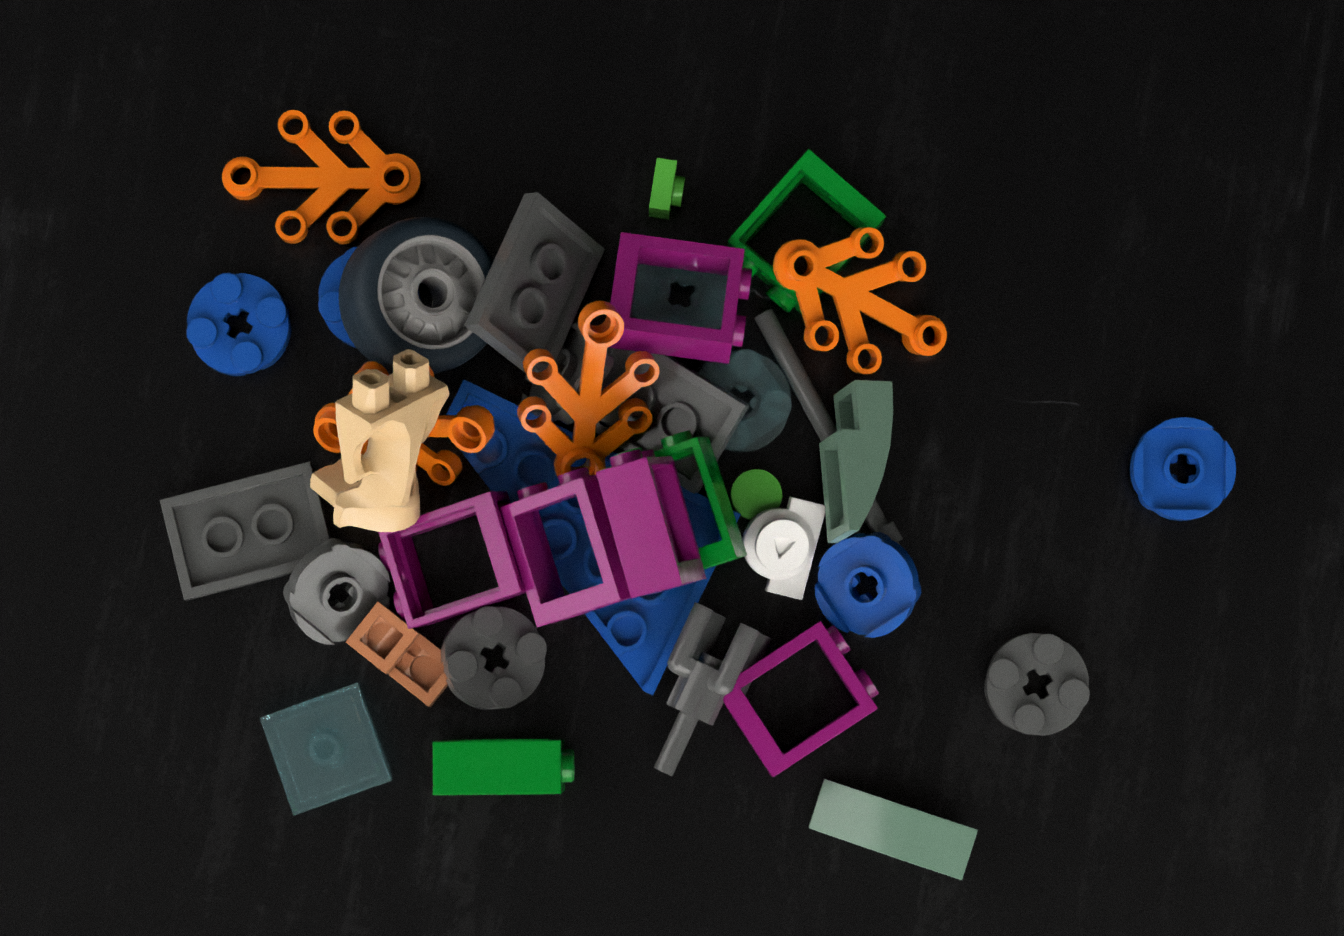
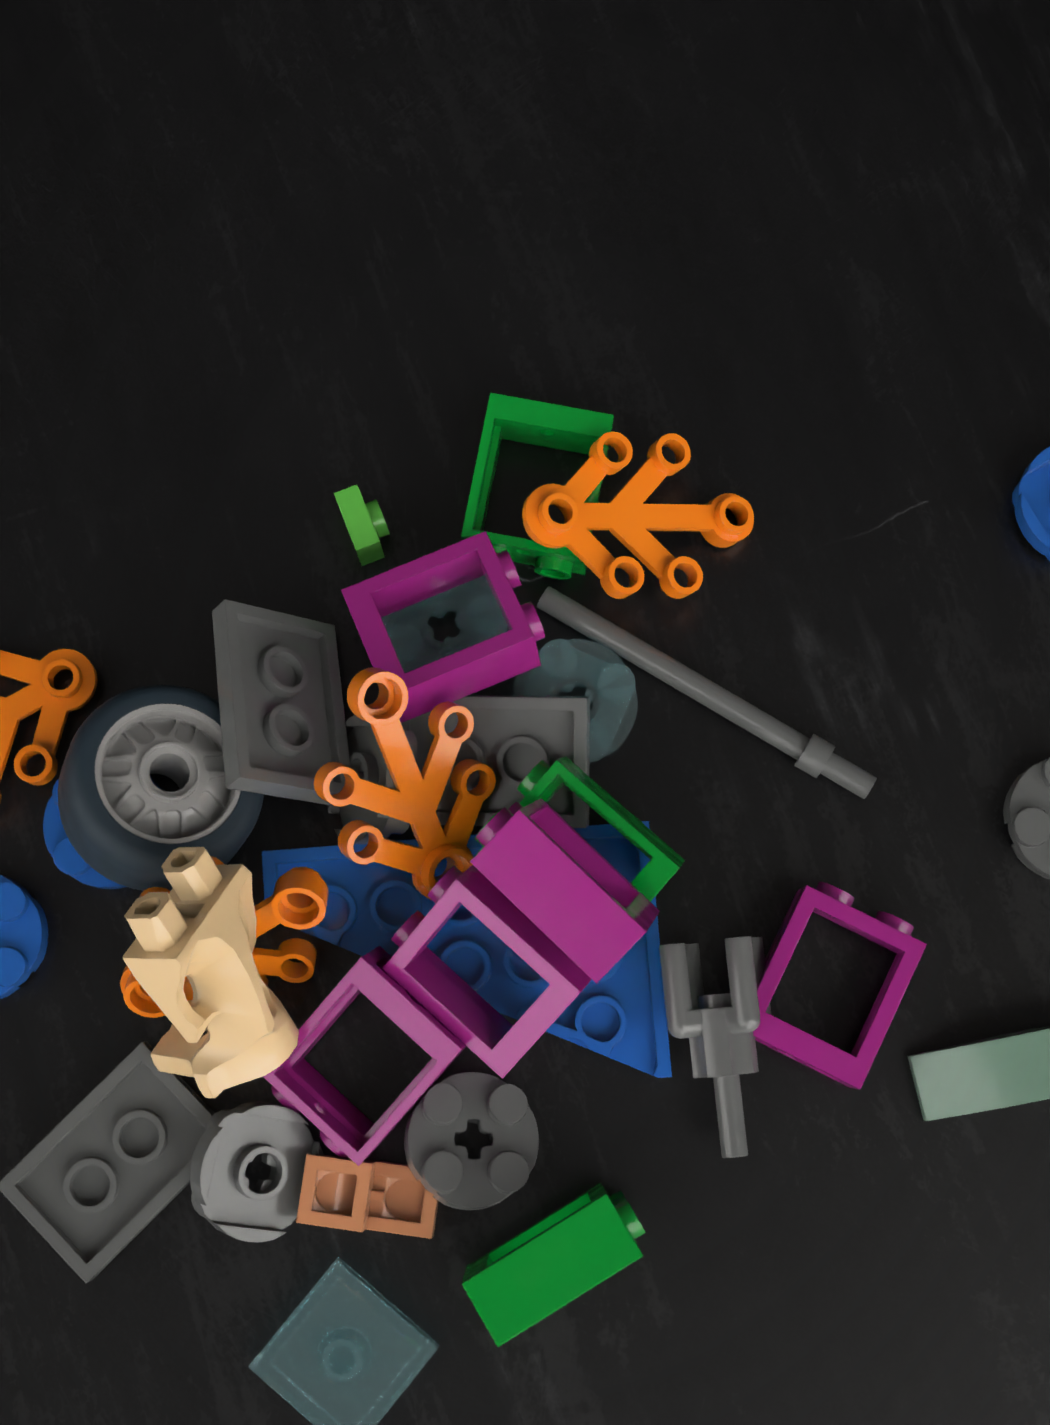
camera: 25 degrees left, 5 degrees down
(755, 492) = (651, 791): bright green tile -> none
(783, 545) = (714, 827): white piece -> none
(855, 455) = (736, 685): sand green slope -> none
(896, 588) = (842, 851): blue plate -> none

